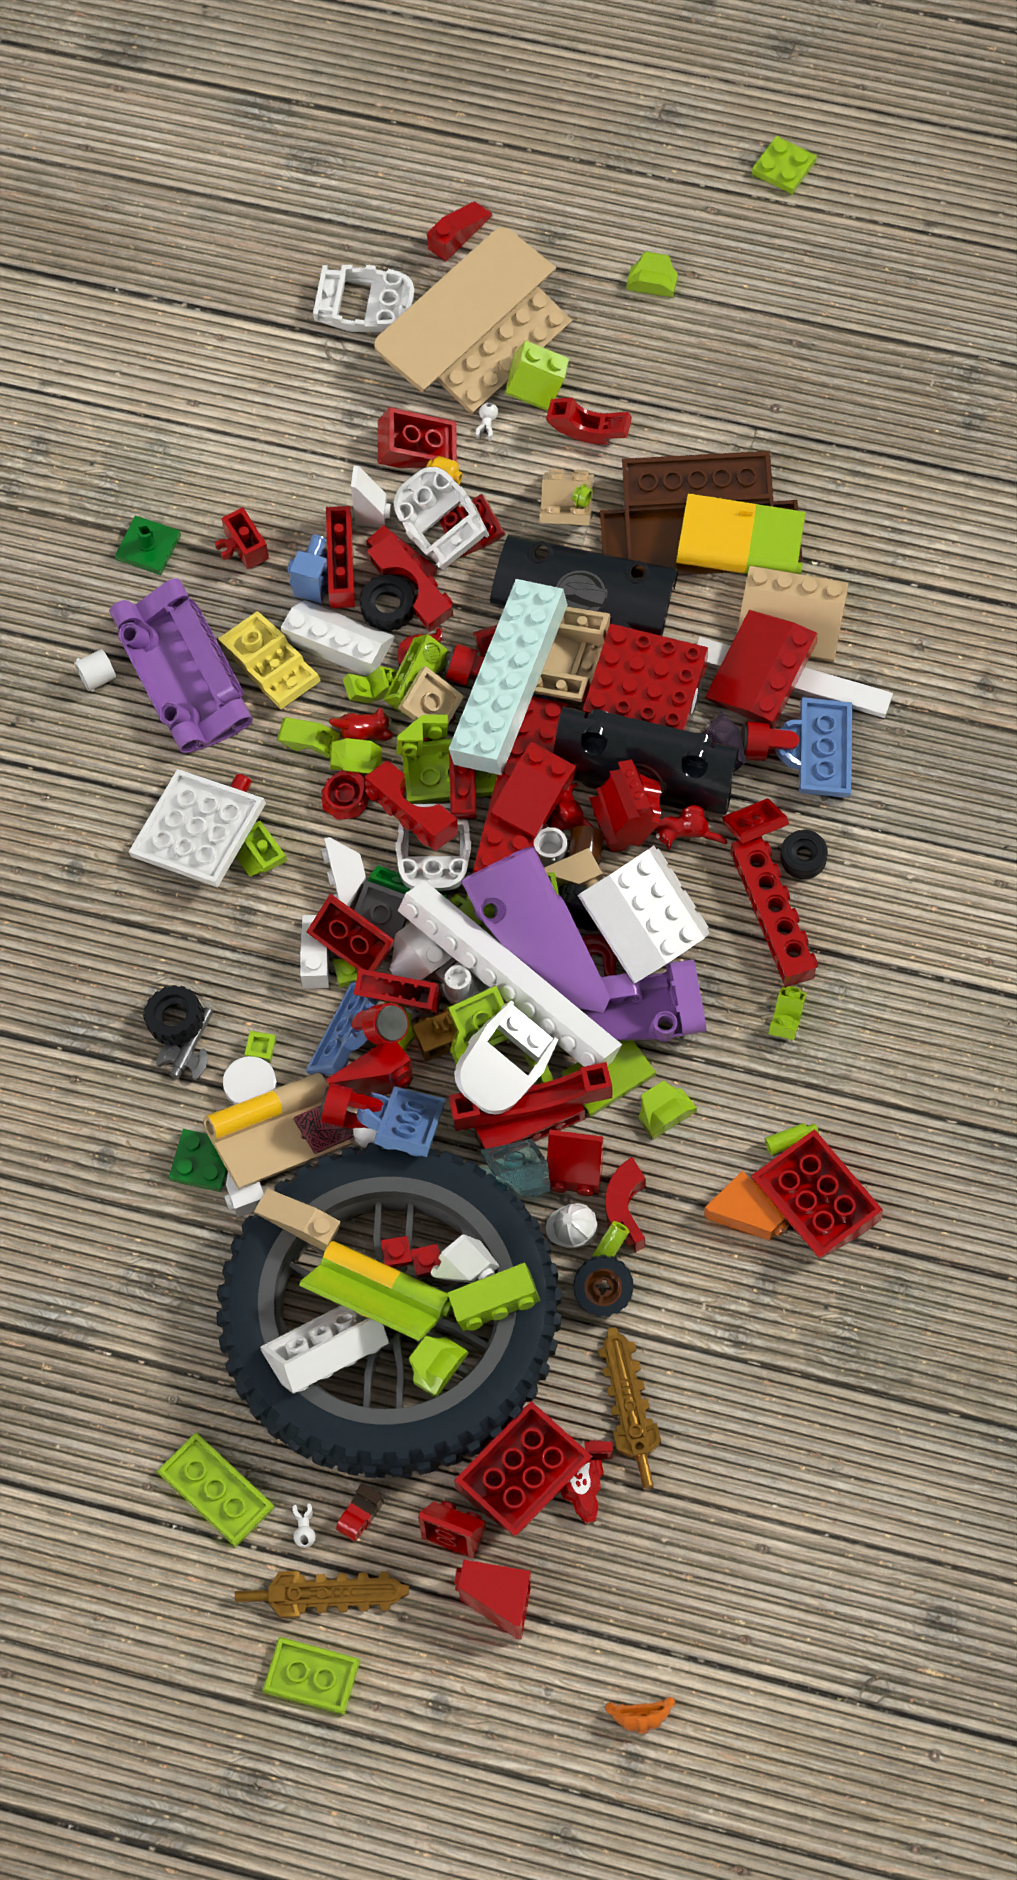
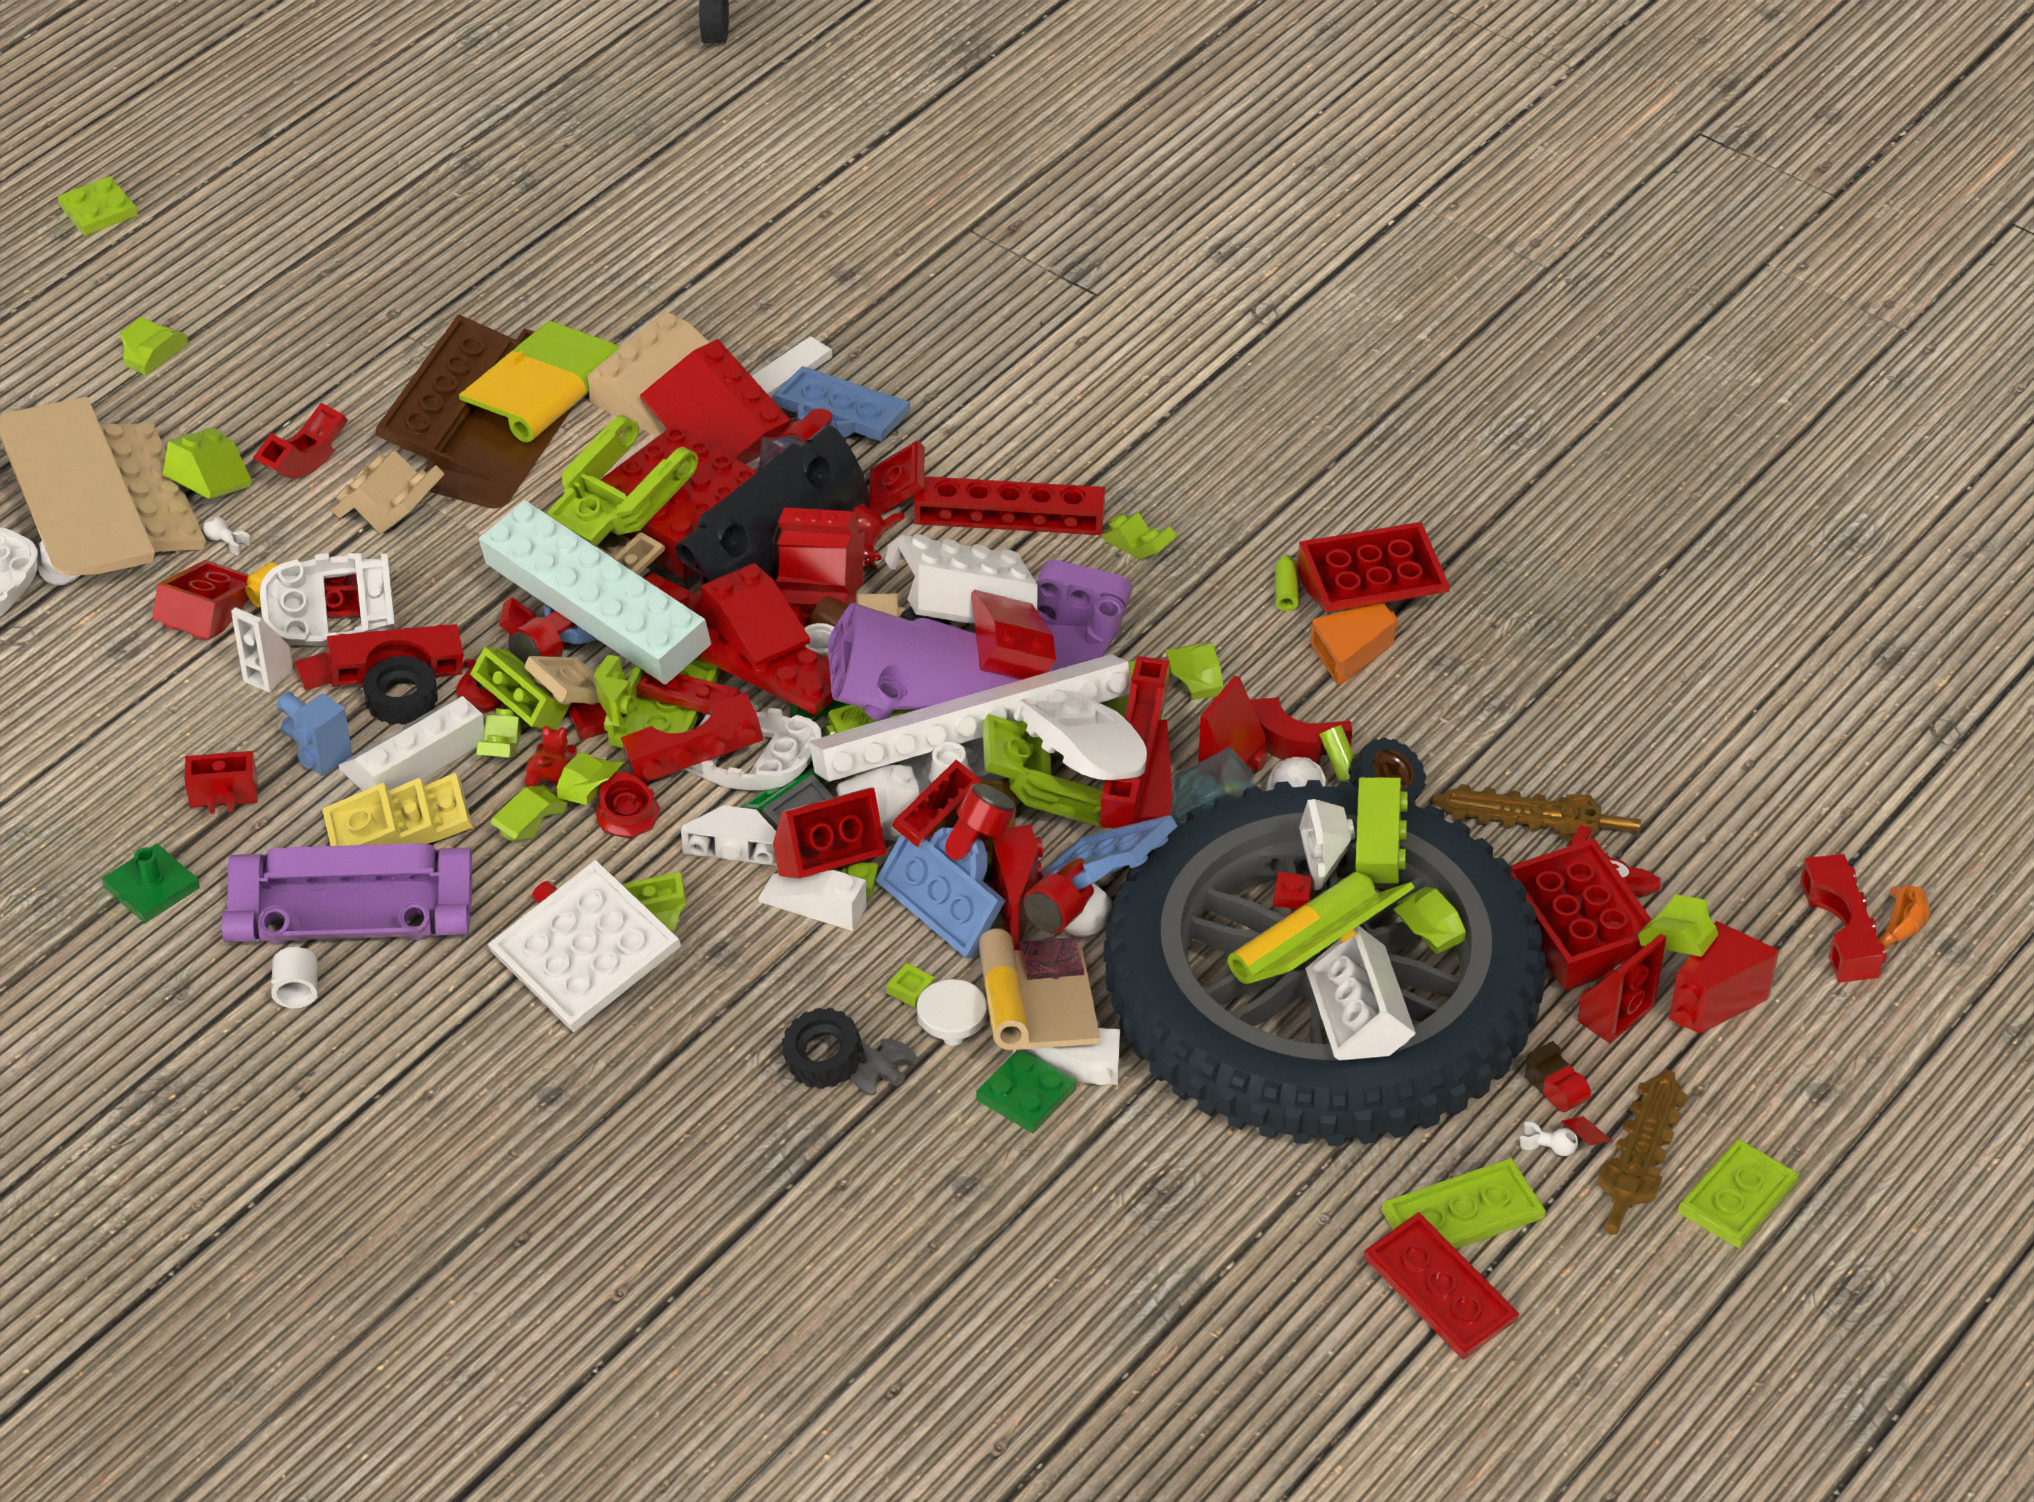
camera: 70 degrees left, 20 degrees down
(135, 1497) = (1441, 1285): none -> red tile
(298, 1218) = (1192, 966): tan slope -> none
(322, 1549) = (1586, 1130): none -> red sticker
(340, 557) = (270, 682): red brick -> none
(396, 1252) = (1266, 912): red plate -> none
(508, 1547) = (1685, 925): none -> lime slope
(582, 496) = (405, 463): lime plate -> none
(583, 634) = (597, 508): none -> lime plate
(585, 1688) = (1833, 887): none -> red arch
(589, 582) = (457, 558): black panel -> none
(599, 966) = (1011, 636): none -> red slope
(804, 840) = (959, 449): black tyre -> none

